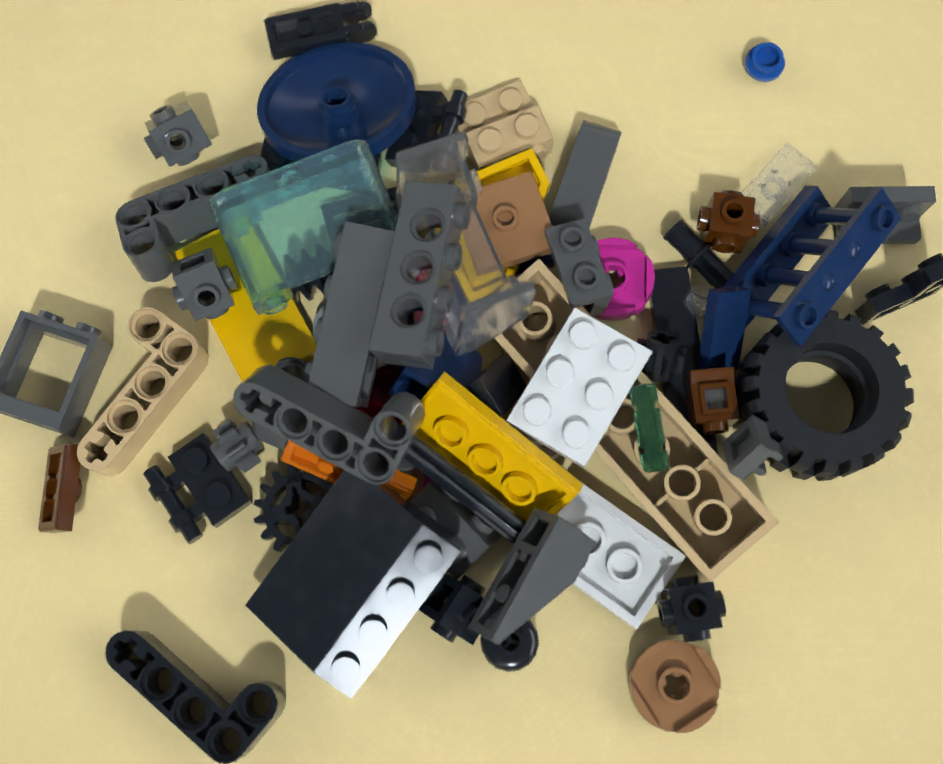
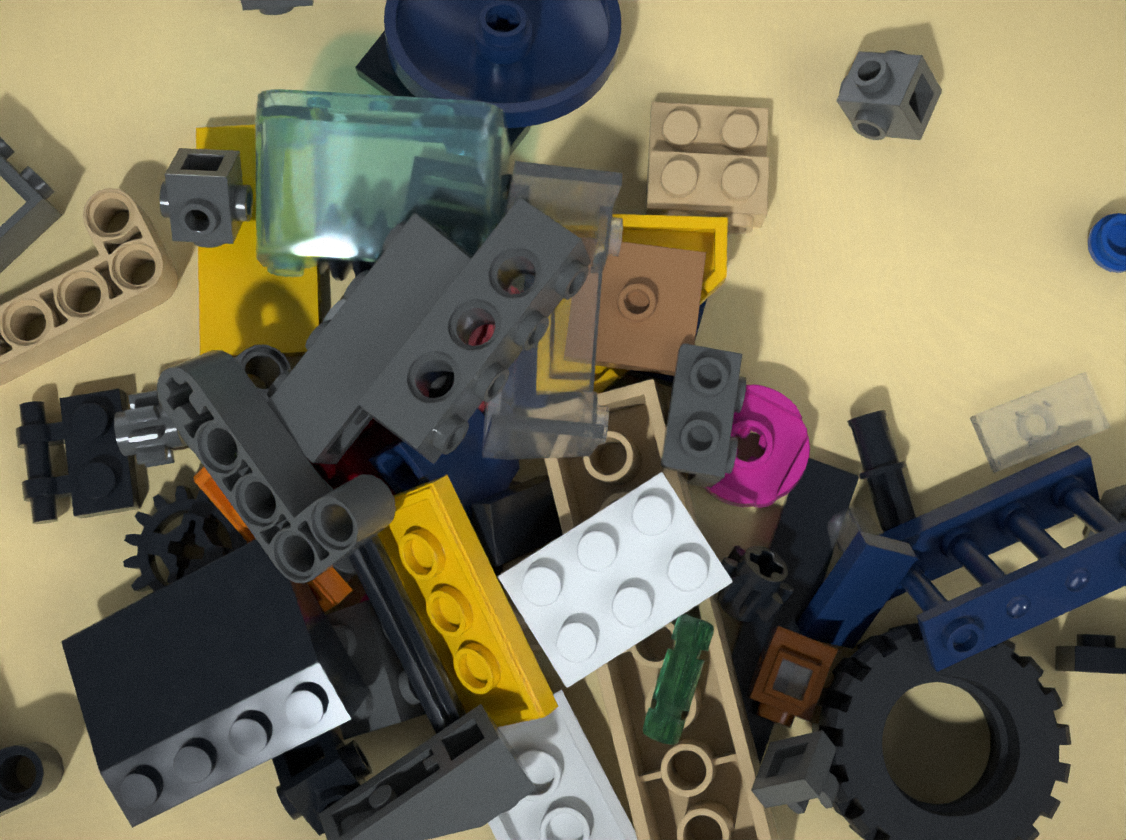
camera: 25 degrees right, 5 degrees up
(175, 214) = (221, 78): dark grey beam -> none
(431, 112) = (592, 126): black plate -> none
(585, 174) = (784, 287): dark grey beam -> none
(588, 37) = (889, 95): none -> dark grey brick
(728, 221) = (926, 456): reddish brown brick -> none

